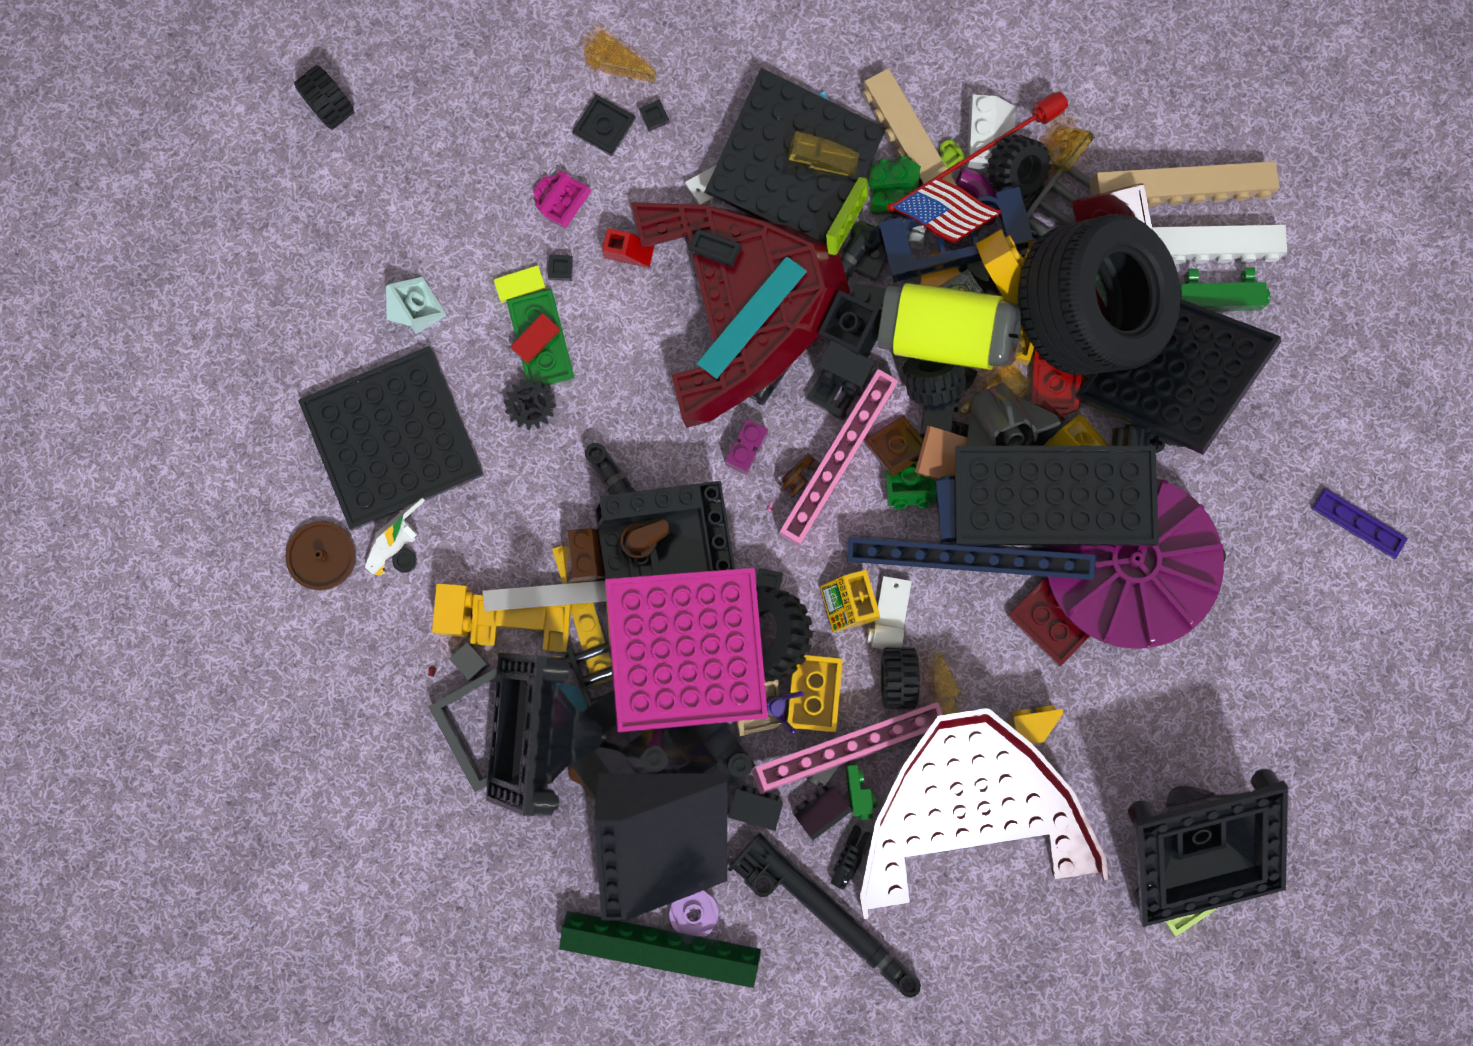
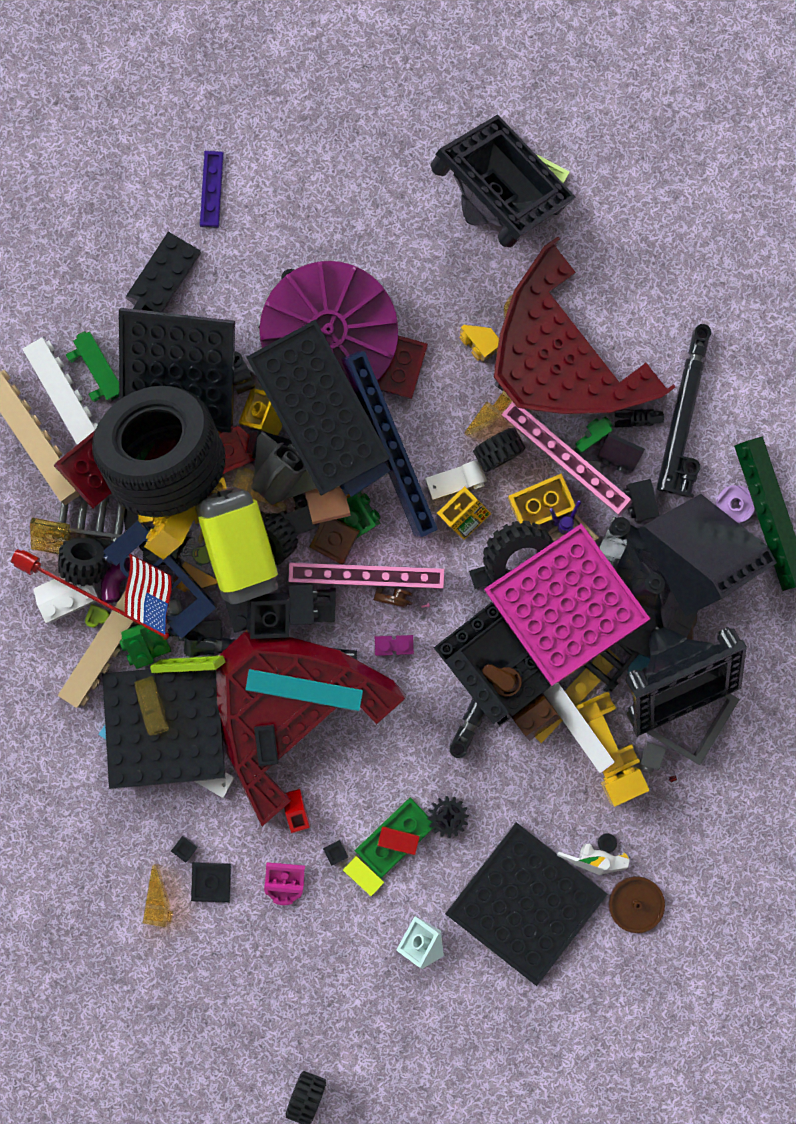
camera: 120 degrees left, 5 degrees up
(1289, 417) = (163, 274): none -> black hinge

